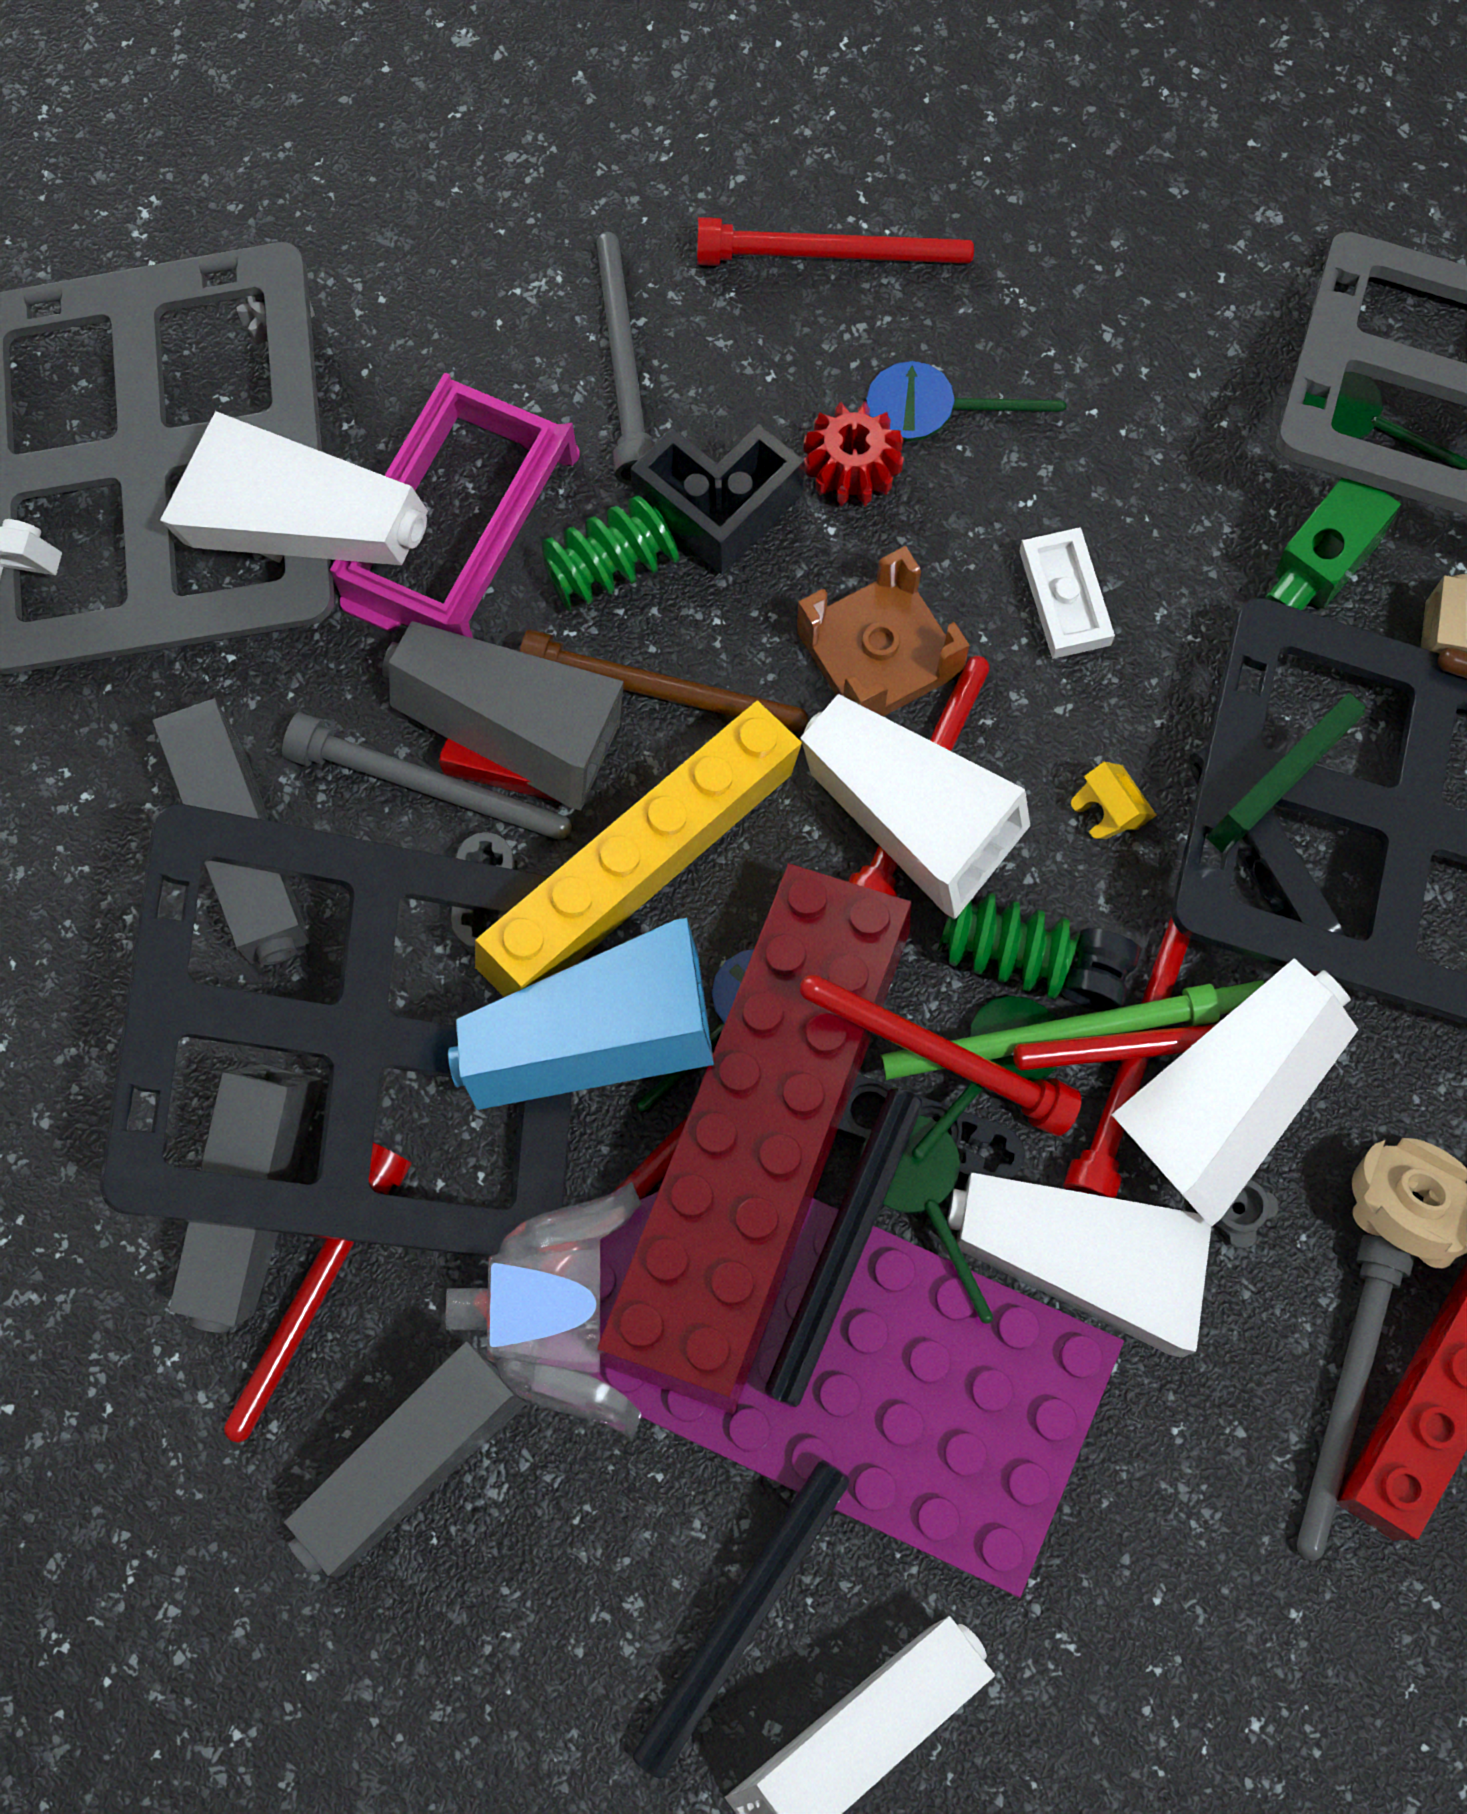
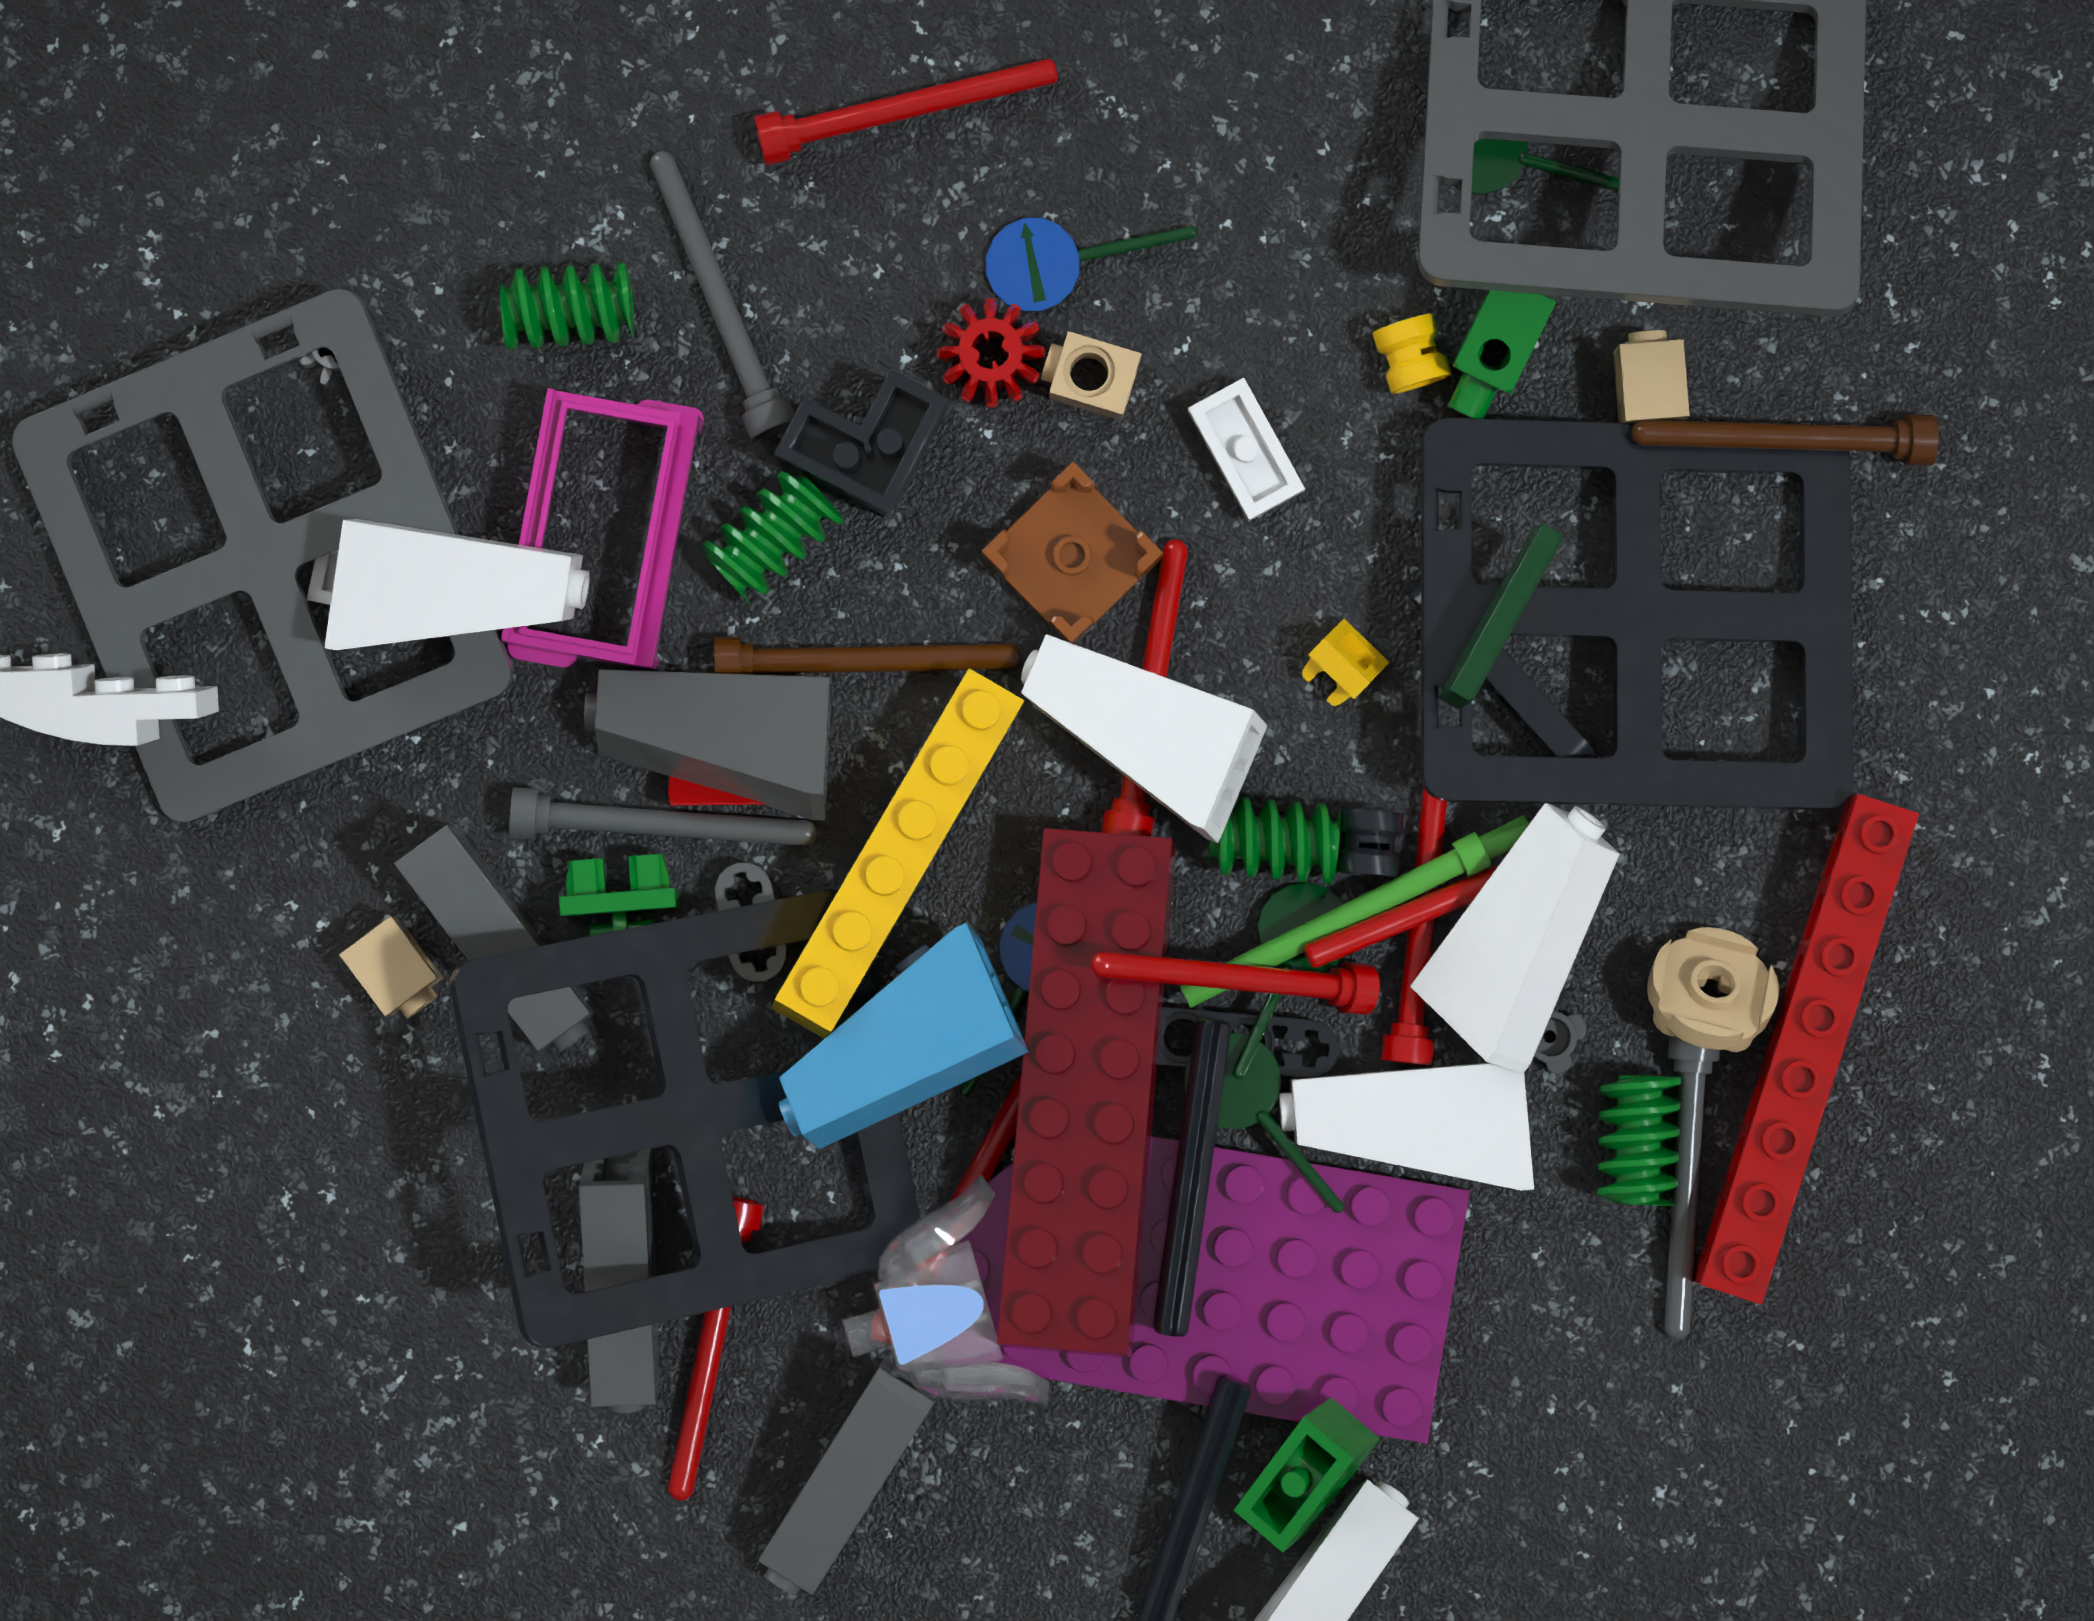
camera: 15 degrees left, 15 degrees up
(121, 837) = (393, 969): none -> tan brick
(341, 814) = (589, 894): none -> green hips
(484, 324) = (567, 307): none -> green piece
(885, 1591) = (1306, 1474): none -> green brick
(944, 517) = (1107, 400): none -> tan brick
(1240, 546) = (1411, 353): none -> yellow wheel
(1311, 1333) = (1639, 1140): none -> green piece

